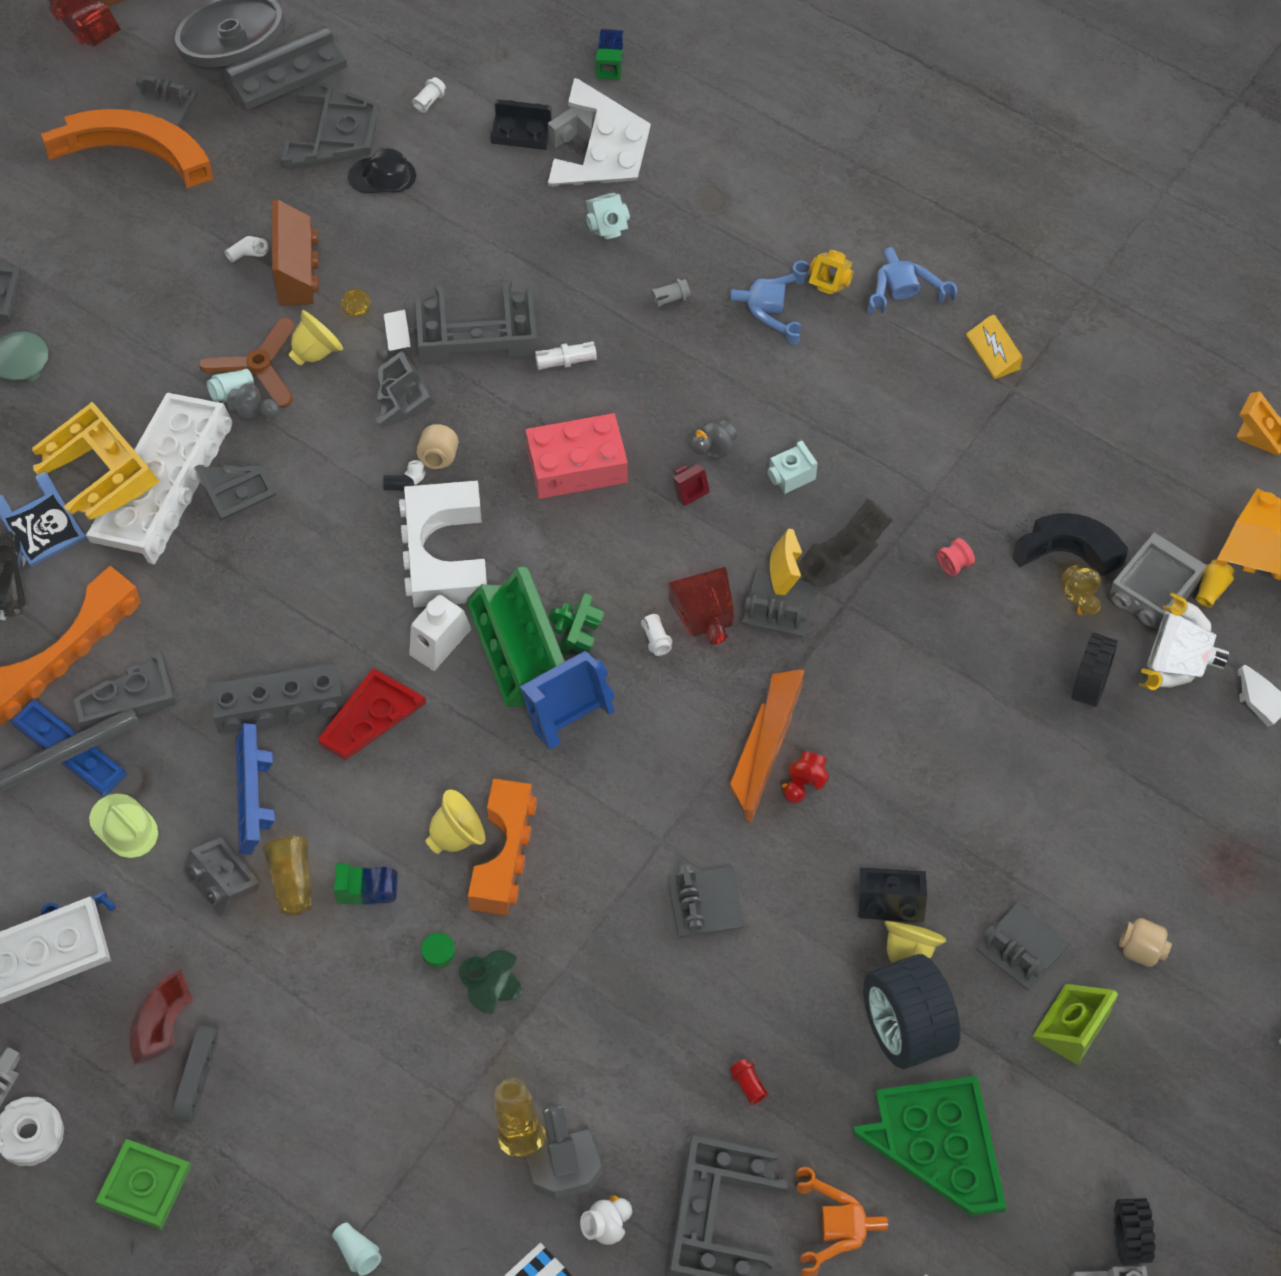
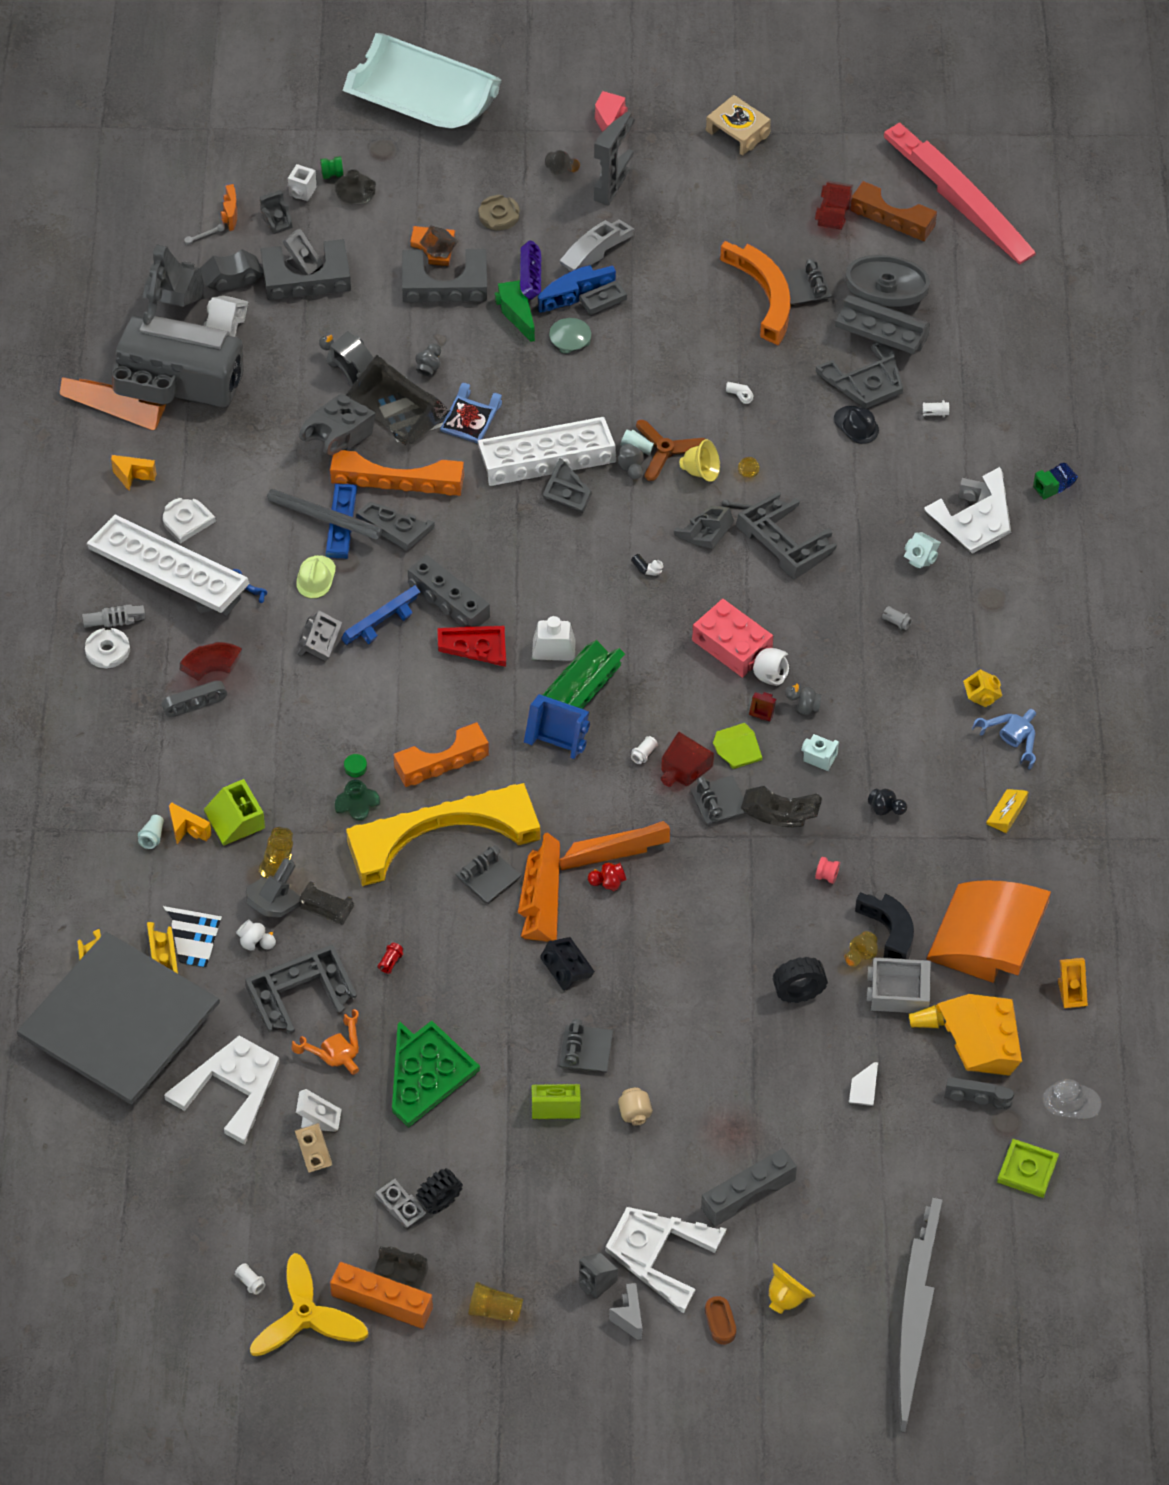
camera: 55 degrees right, 5 degrees down
(44, 519) = (468, 413): none -> clear red plant
(91, 430) = (529, 433): yellow wedge -> none
(143, 1184) = (115, 715): bright green plate -> none
(290, 873) = (344, 666): clear yellow plant -> none
(294, 255) = (749, 412): dark orange slope -> none
(365, 884) = (365, 704): leg -> none
(368, 1201) = (185, 821): none -> light orange slope
(397, 330) = (748, 499): white sticker -> none
(409, 1131) = (235, 813): none -> lime slope
(426, 511) = (628, 587): white arch -> none
(437, 446) = (680, 566): tan head -> none
(455, 825) = (438, 723): light yellow hat -> none
(521, 124) = (955, 466): black bracket -> none
(565, 355) = (803, 592): white pin -> none
(575, 996) = (500, 810): none -> yellow arch
(582, 614) = (607, 709): green hips -> none
(618, 1106) = (325, 904): none -> clear smoke hinge
(644, 440) = (769, 664): none -> white helmet
(718, 540) = (737, 745): none -> lime slope
(768, 297) = (939, 669): medium blue piece -> none
(771, 860) = (540, 892): none -> orange wedge
(783, 564) = (750, 781): yellow slope -> none
(905, 450) = (884, 801): none -> black animal
(908, 940) = (537, 987): light yellow hat -> none
(911, 1011) = (487, 1003): black wheel -> none
(1146, 453) = (989, 928): none -> orange slope
(1182, 647) = (857, 1018): torso -> none

